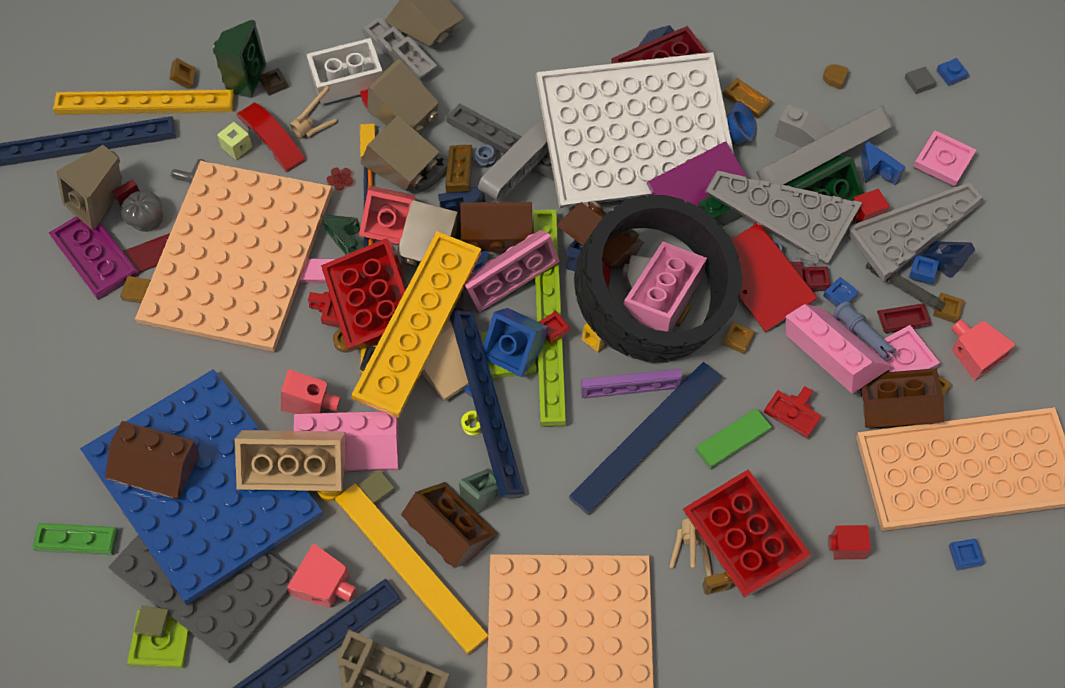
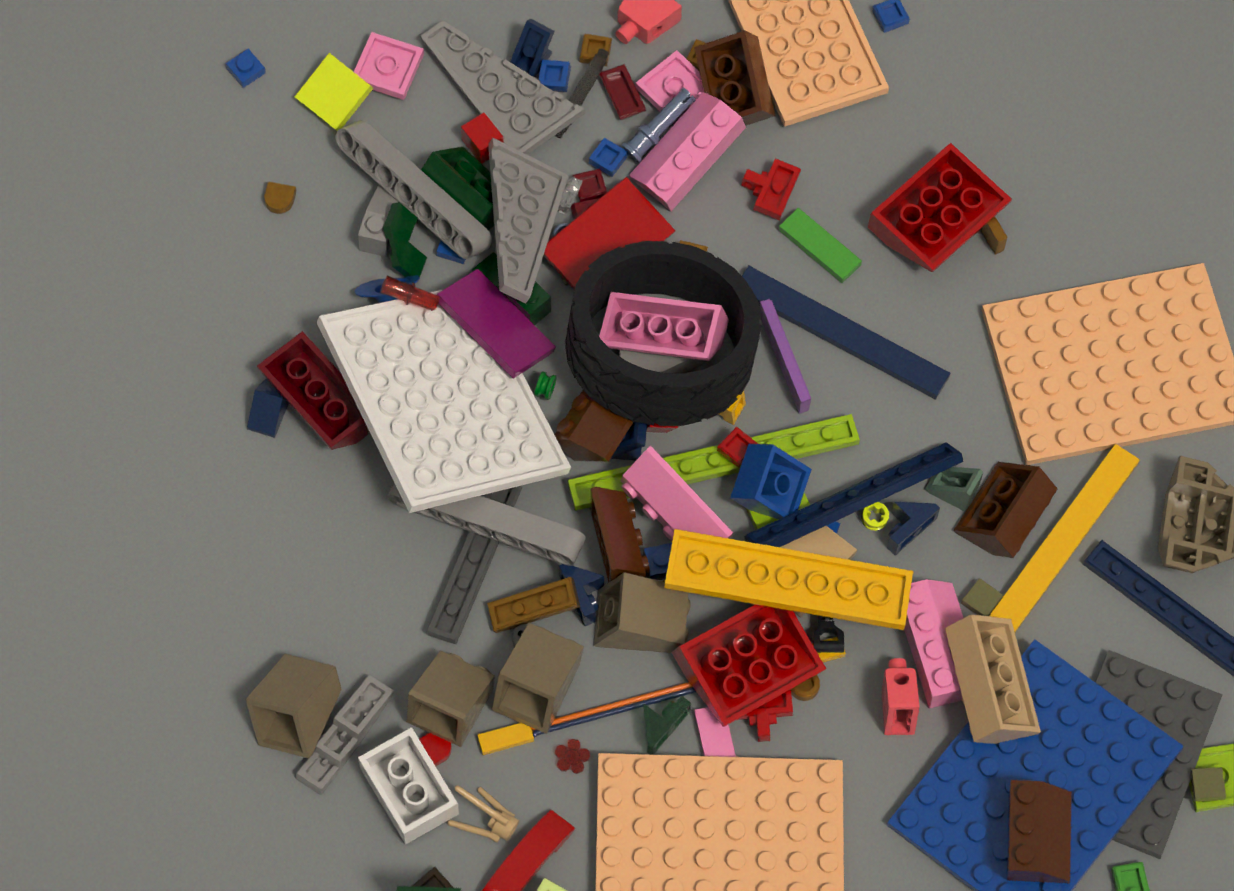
camera: 105 degrees left, 5 degrees up
(321, 579) = (1107, 623): coral torso -> none
(385, 214) = (623, 673): coral slope -> none
(457, 447) = (913, 521): none -> dark blue slope
(485, 150) = (495, 578): sand blue plate -> none
(691, 537) = (949, 267): tan plant -> none
(727, 120) = (409, 293): none -> clear red axle
(741, 92) = (337, 291): pearl gold tile -> none
(787, 129) = (398, 229): none -> dark green tile
(849, 542) = (913, 117): red brick -> none
(877, 161) = (413, 138): blue slope -> none
(920, 80) = (266, 102): dark grey tile -> none
(923, 118) = (334, 92): none -> neon yellow tile

